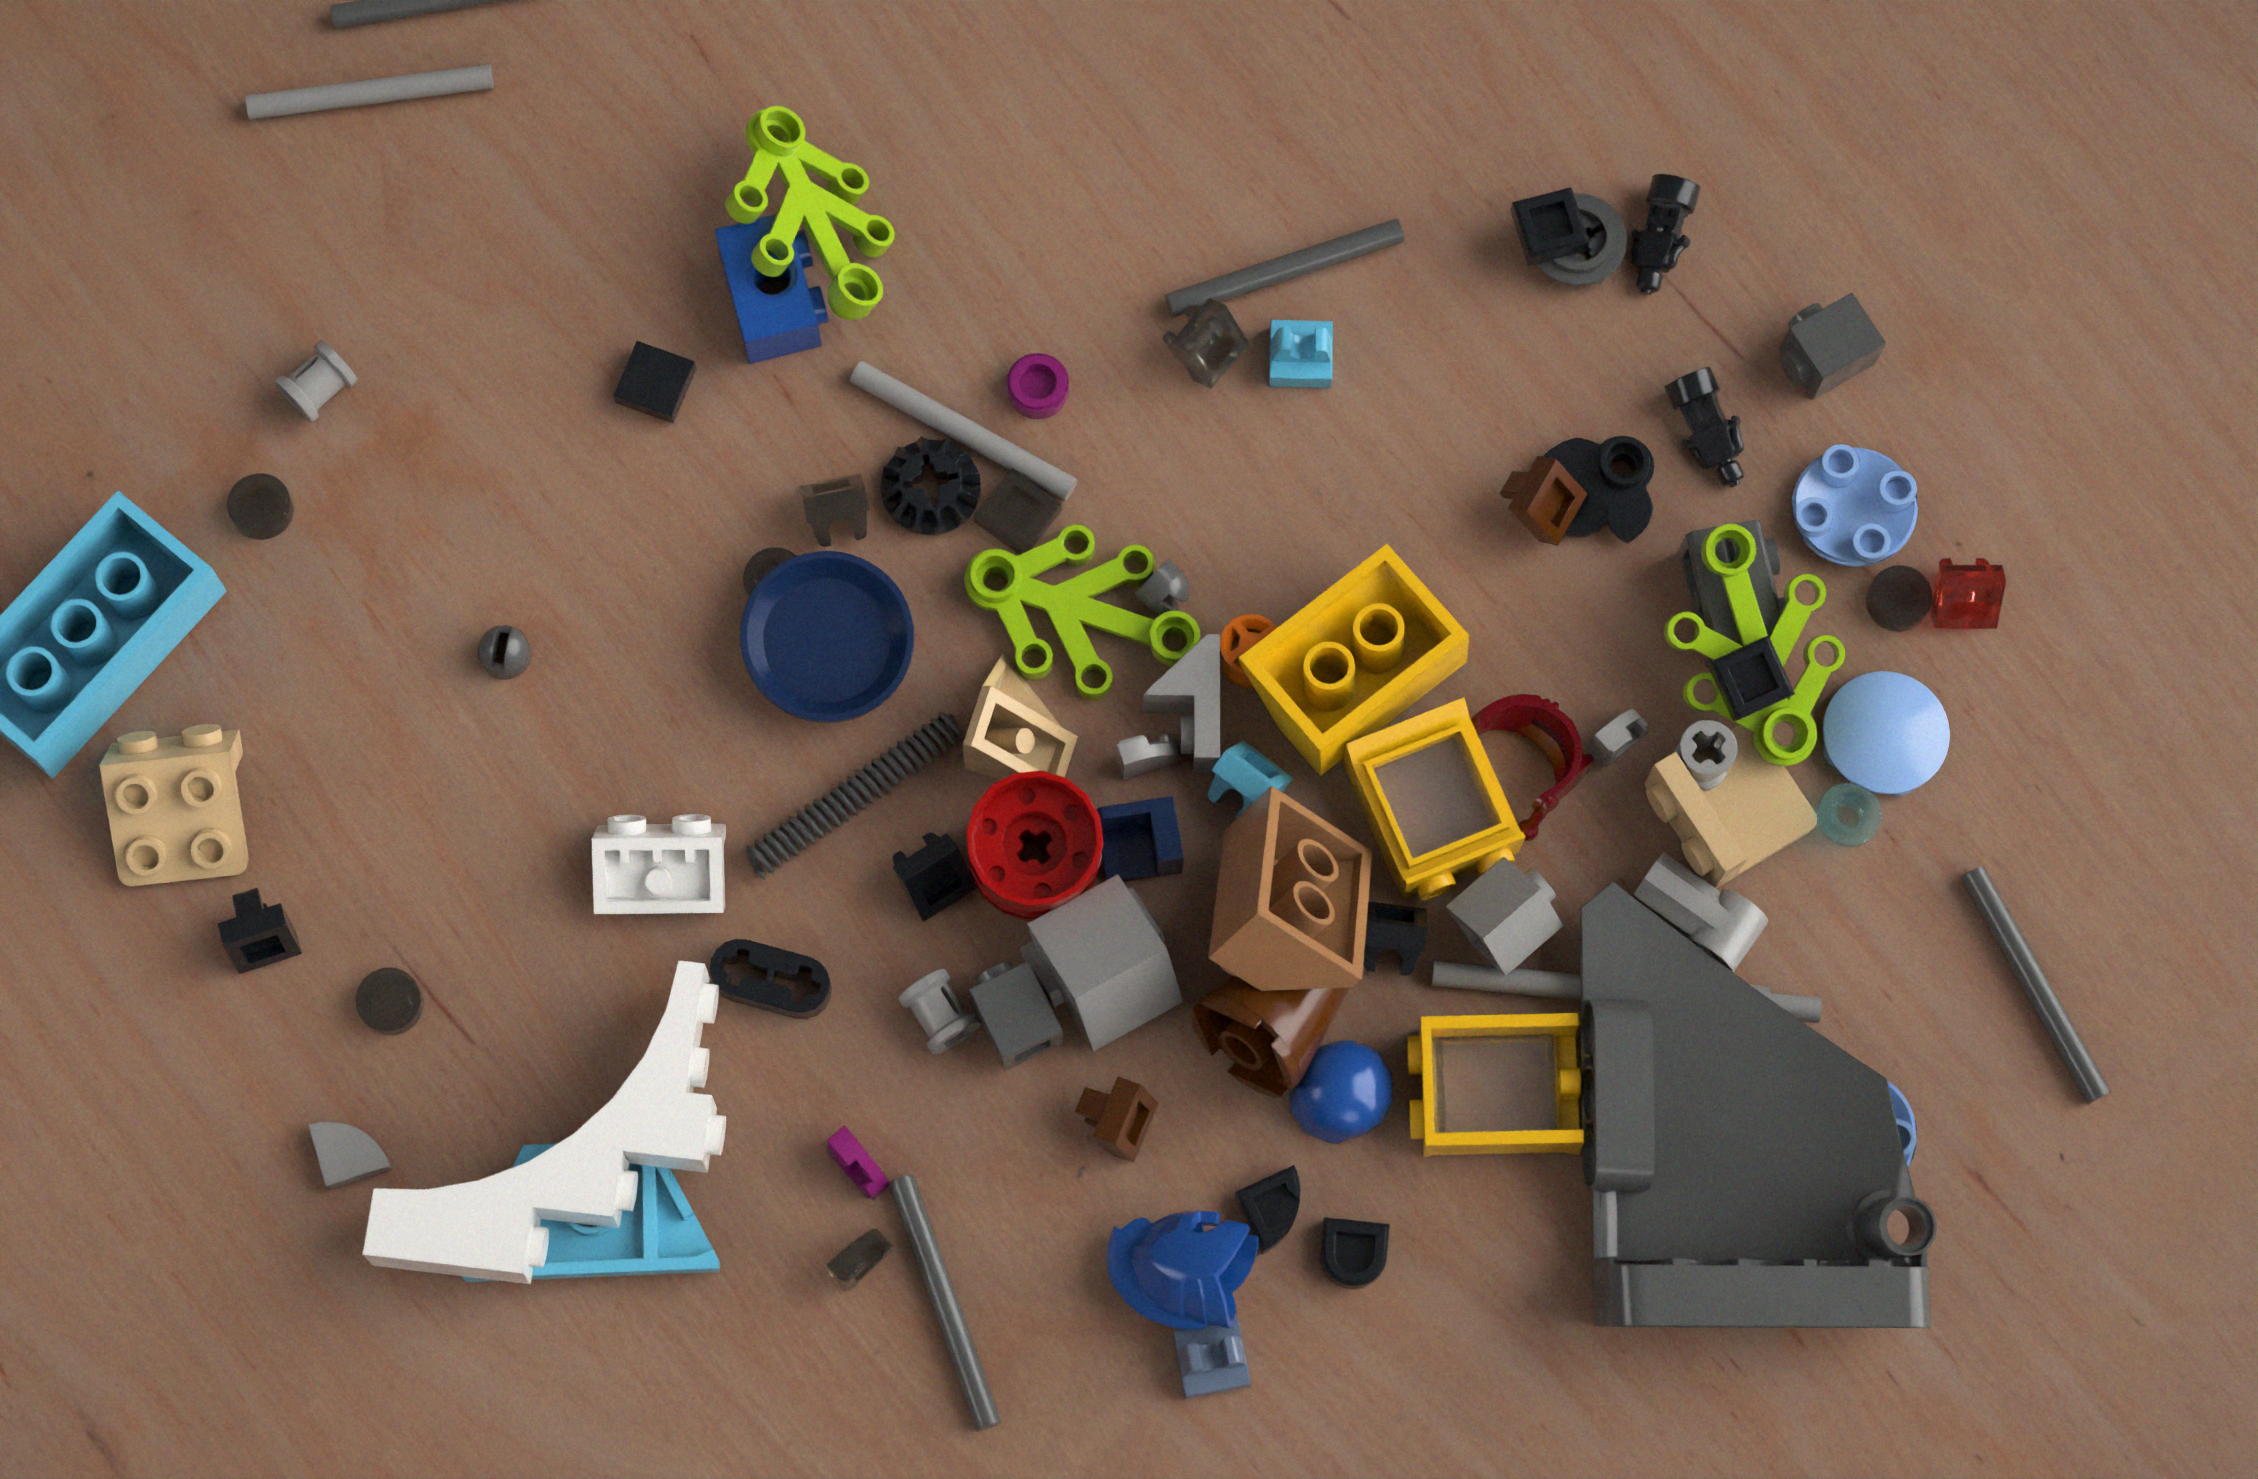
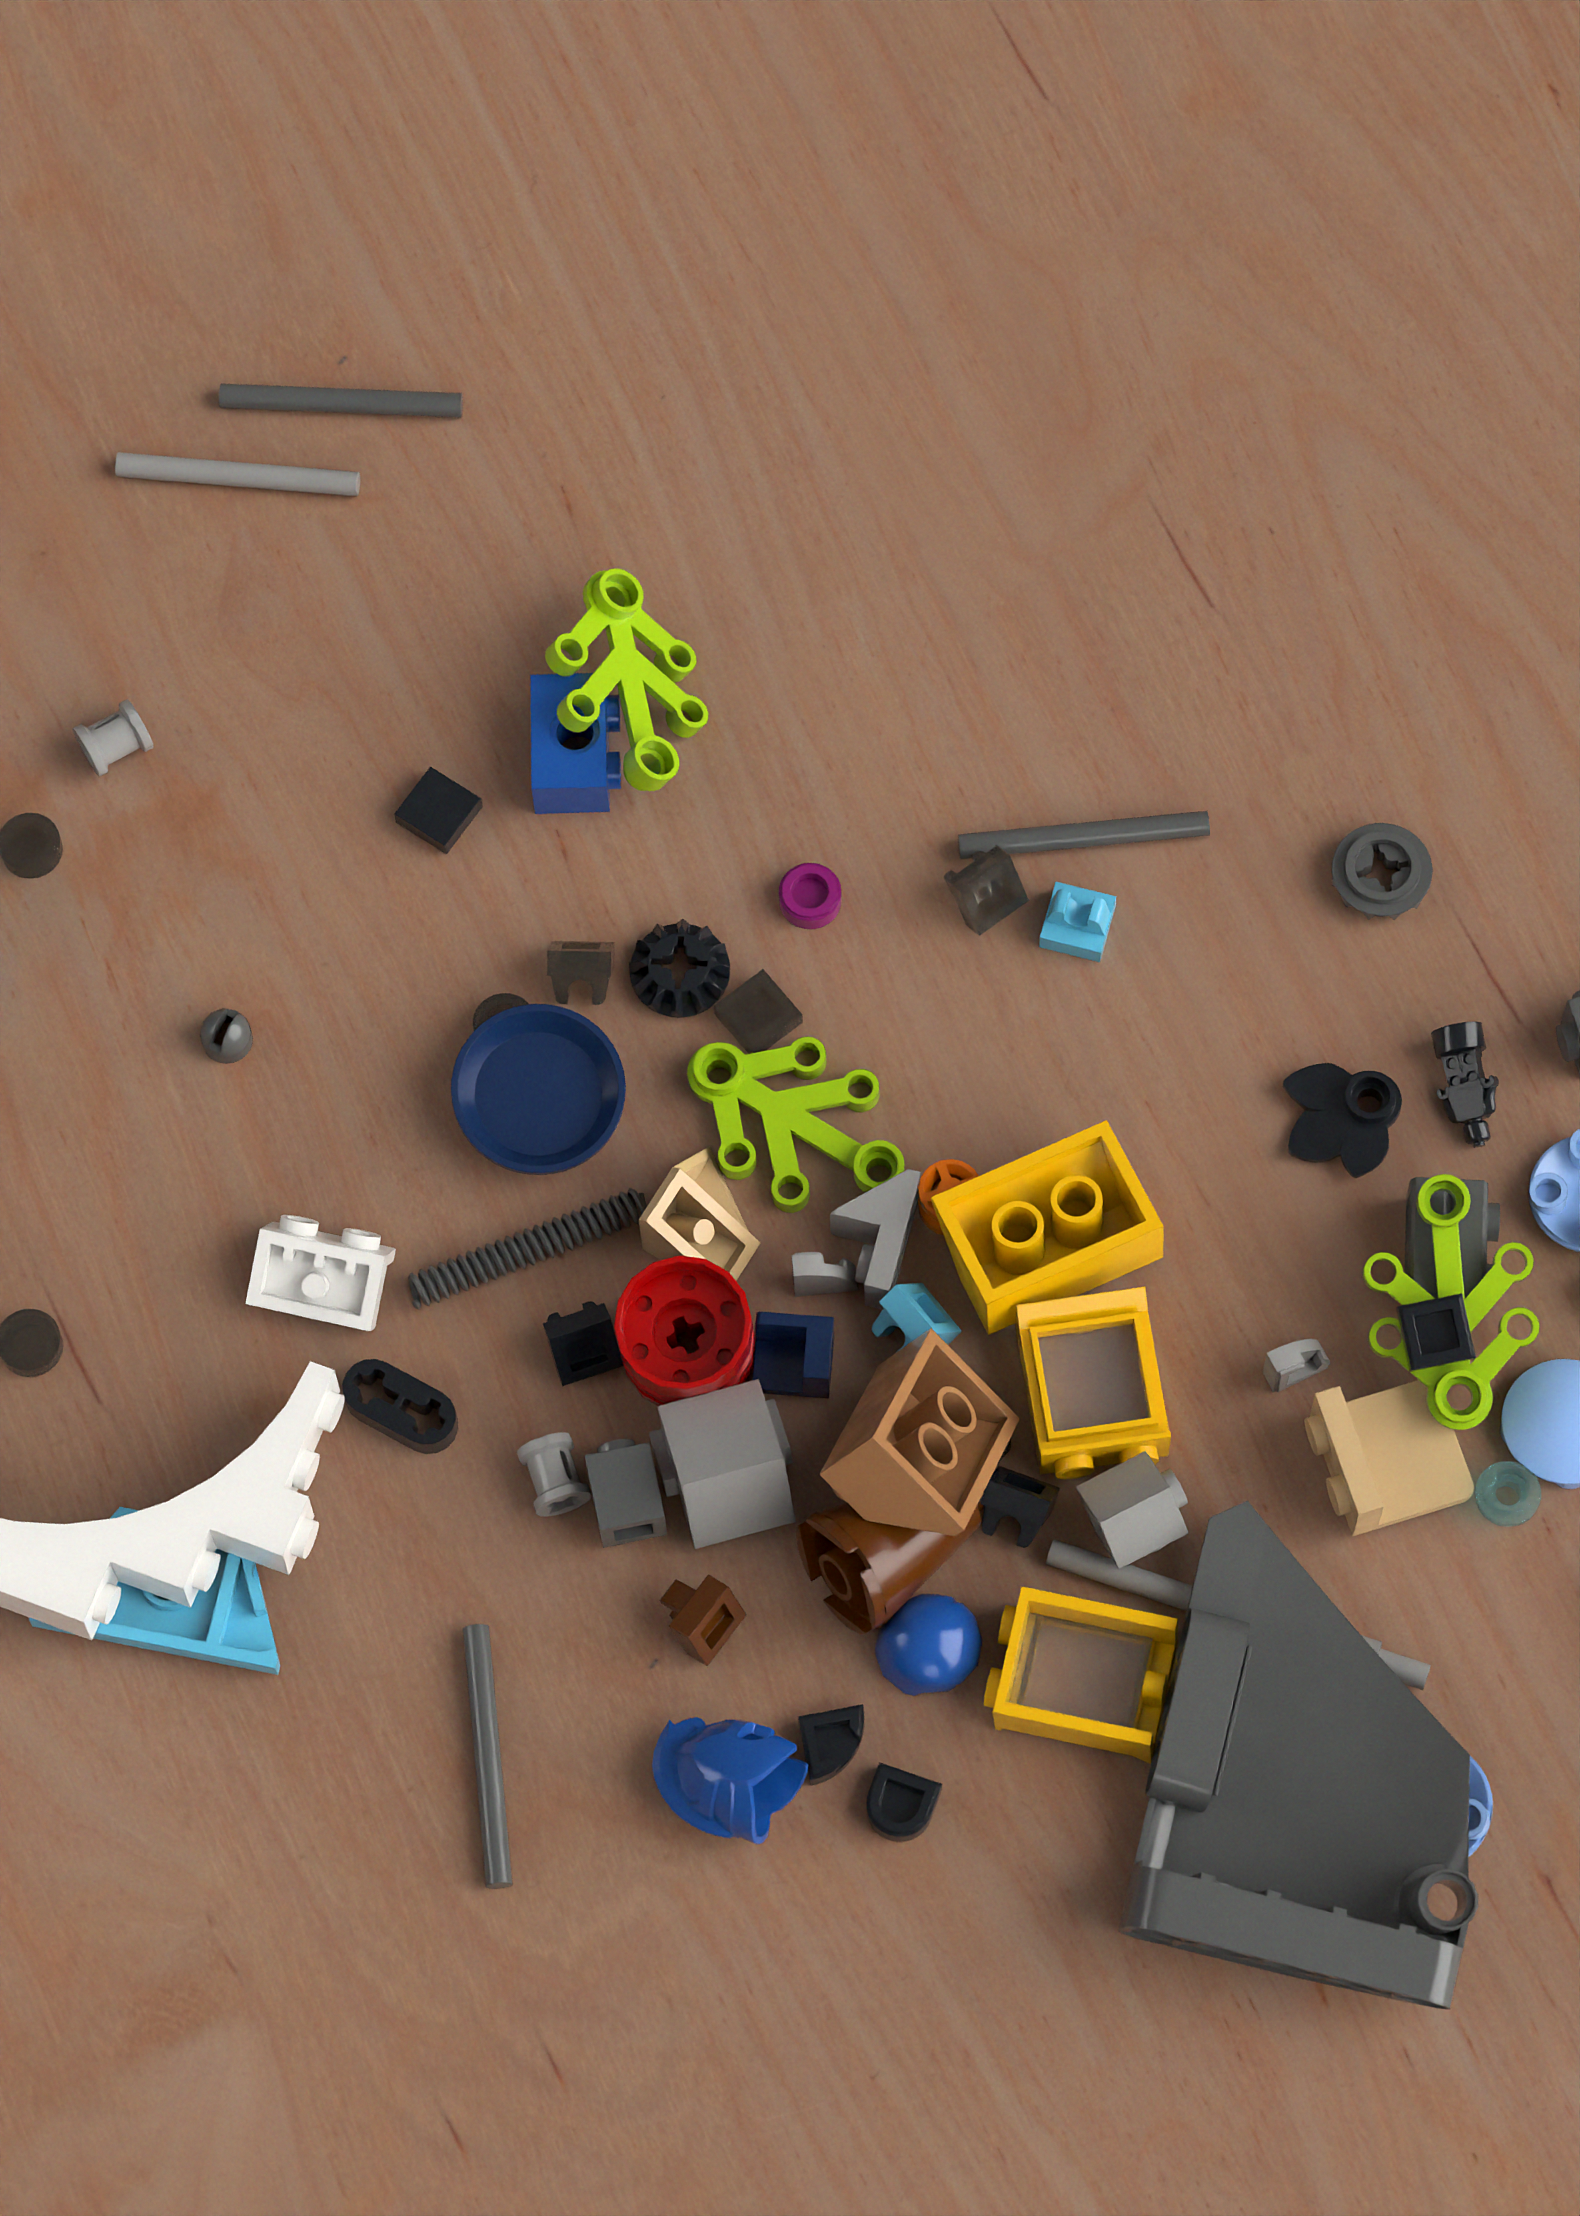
camera: 20 degrees right, 5 degrees down
(857, 1163) = (436, 1600): magenta tile -> none
(859, 1258) = (414, 1693): clear smoke tile -> none
(963, 430) = (726, 922): light grey bar -> none
(1163, 587) = (881, 1117): dark grey hinge -> none
(1211, 1360) = (733, 1874): sand blue tile -> none
(1544, 499) = (1280, 1115): reddish brown tile -> none
(1549, 226) = (1354, 850): black tile -> none
(1552, 733) = (1229, 1344): dark red helmet -> none
(1660, 243) = (1467, 890): black piece -> none
(1704, 736) = (1375, 1380): light grey bush -> none
(1712, 919) = (1342, 1565): light grey piece -> none

